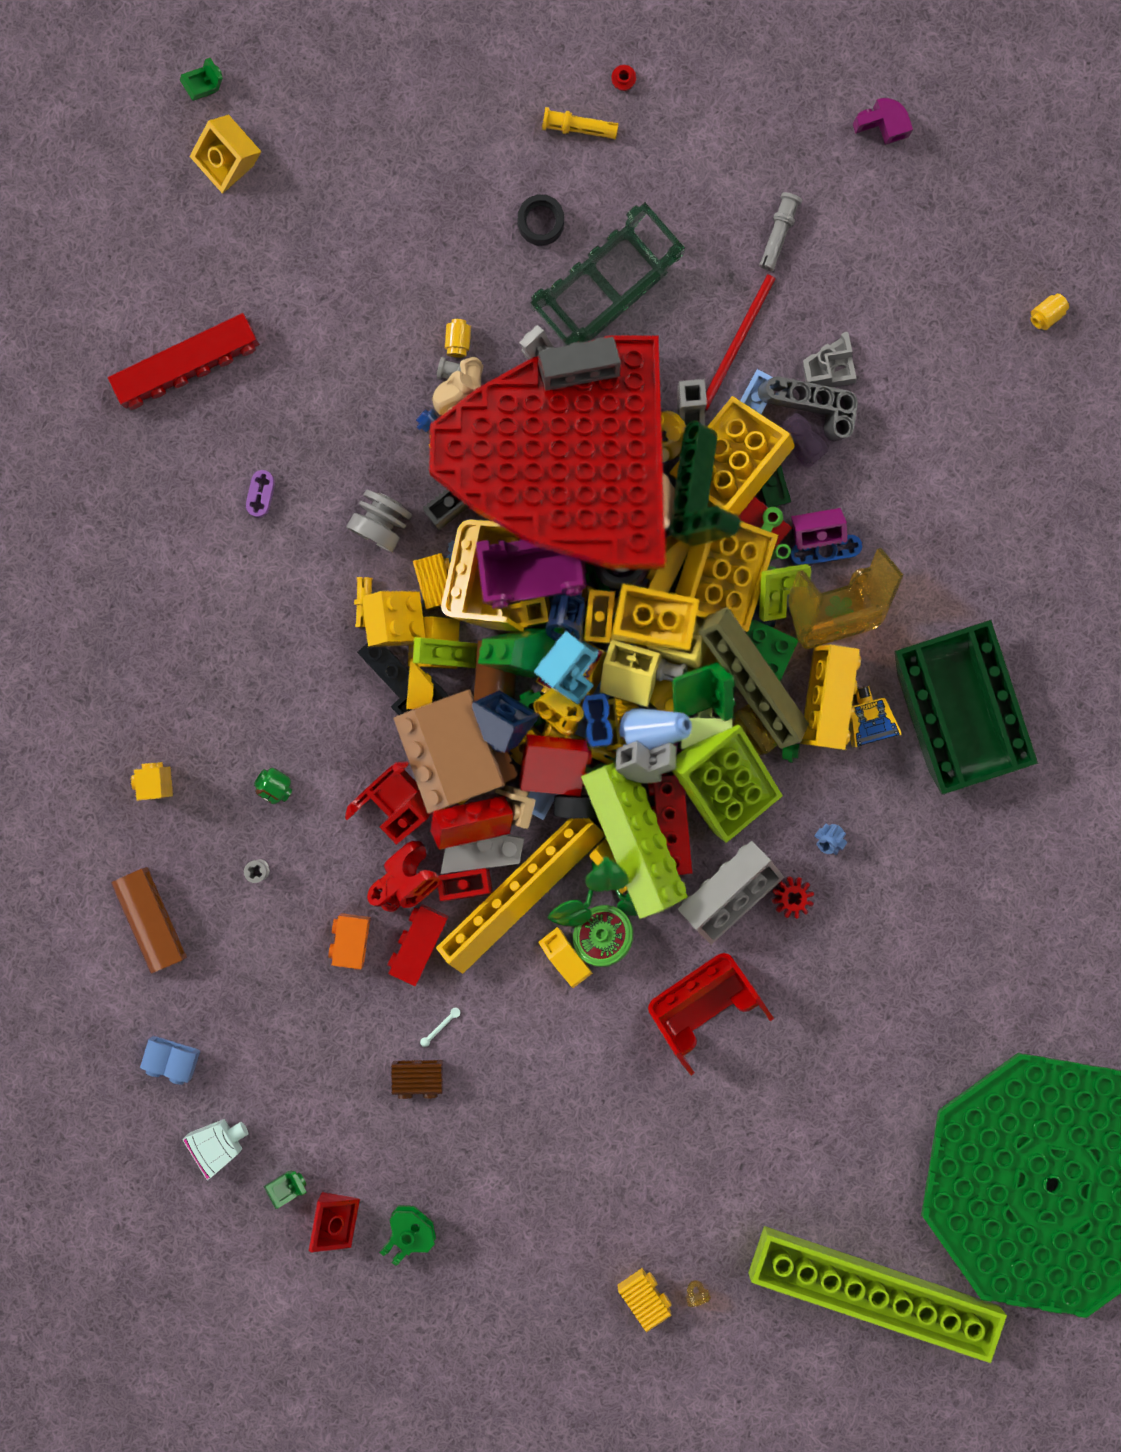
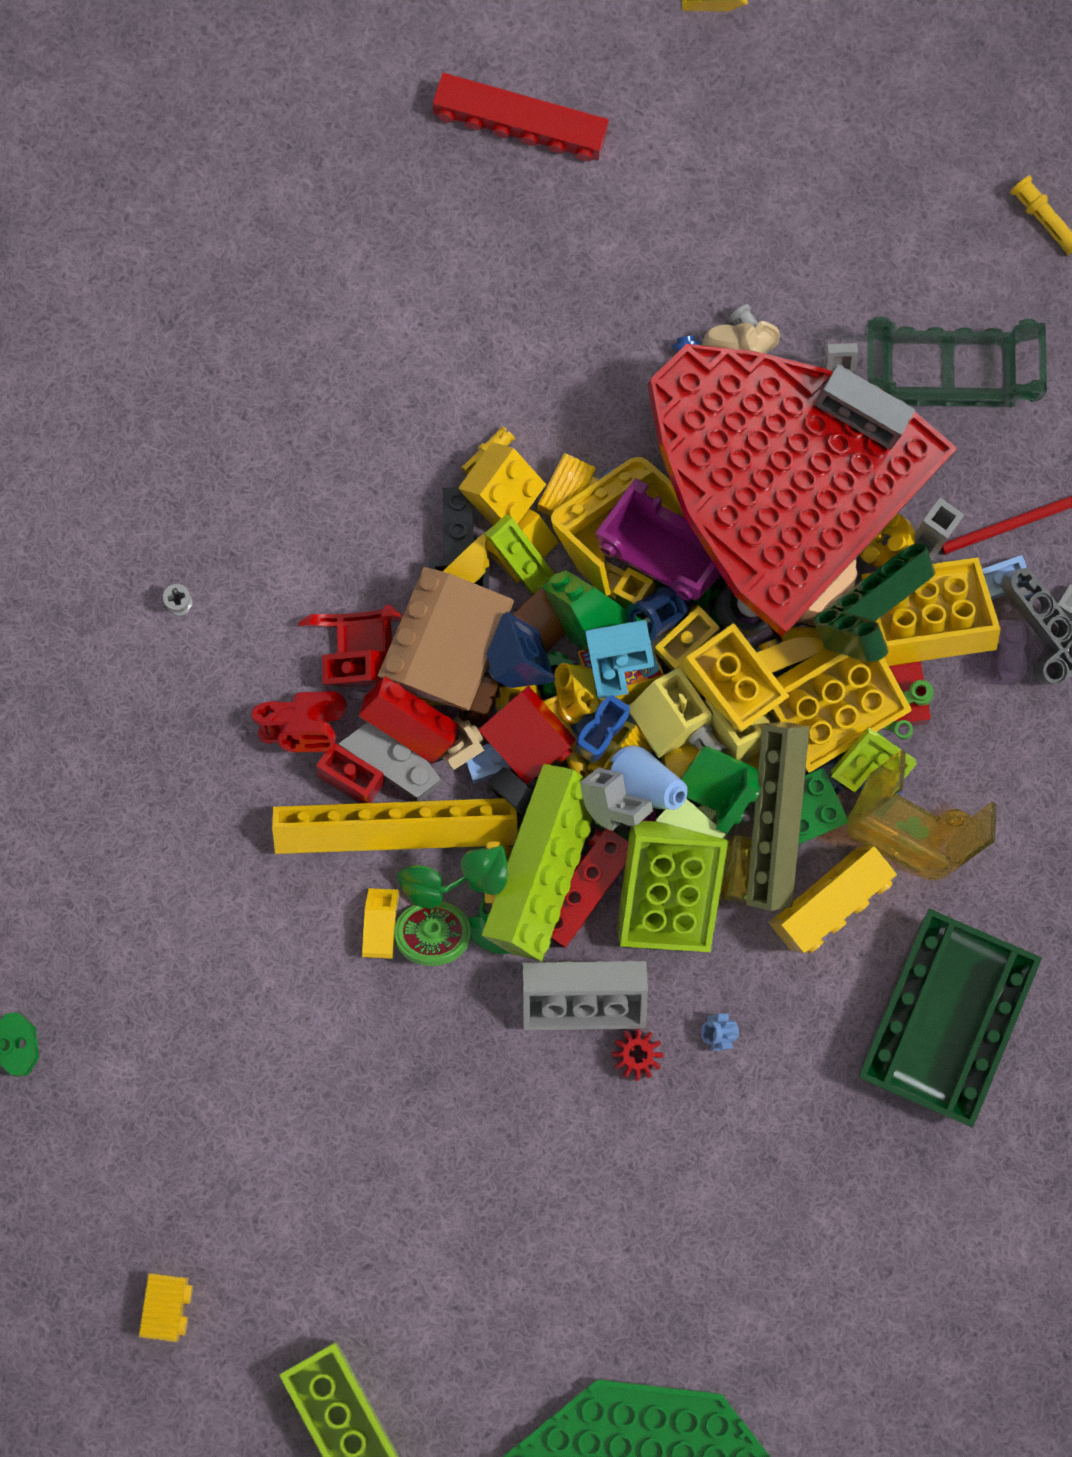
camera: 35 degrees right, 10 degrees down
(149, 920) = (43, 558): dark orange brick -> none
(152, 781) = (160, 440): yellow brick -> none
(254, 492) = (487, 288): medium lavender beam -> none
(273, 786) = (261, 539): green head -> none
(350, 941) = (201, 734): orange brick -> none
(379, 520) = (567, 392): light grey wheel -> none
(417, 944) = (258, 791): red brick -> none
(417, 1077) = (147, 911): reddish brown brick -> none
(425, 1042) = (234, 885): light aqua hinge -> none
(444, 508) = (634, 433): dark grey brick -> none
(457, 338) = (776, 301): yellow brick -> none
(527, 206) = (940, 244): black tyre -> none
(697, 1298) = (215, 1351): clear yellow tile -> none
(699, 999) = (467, 1073): red windscreen -> none
(775, 490) = (946, 674): dark green plate -> none
(791, 752) = (754, 919): green plate -> none
(819, 528) = (955, 742): magenta brick -> none
(845, 554) = (956, 765): blue beam -> none
(871, 719) = (852, 956): torso -> none

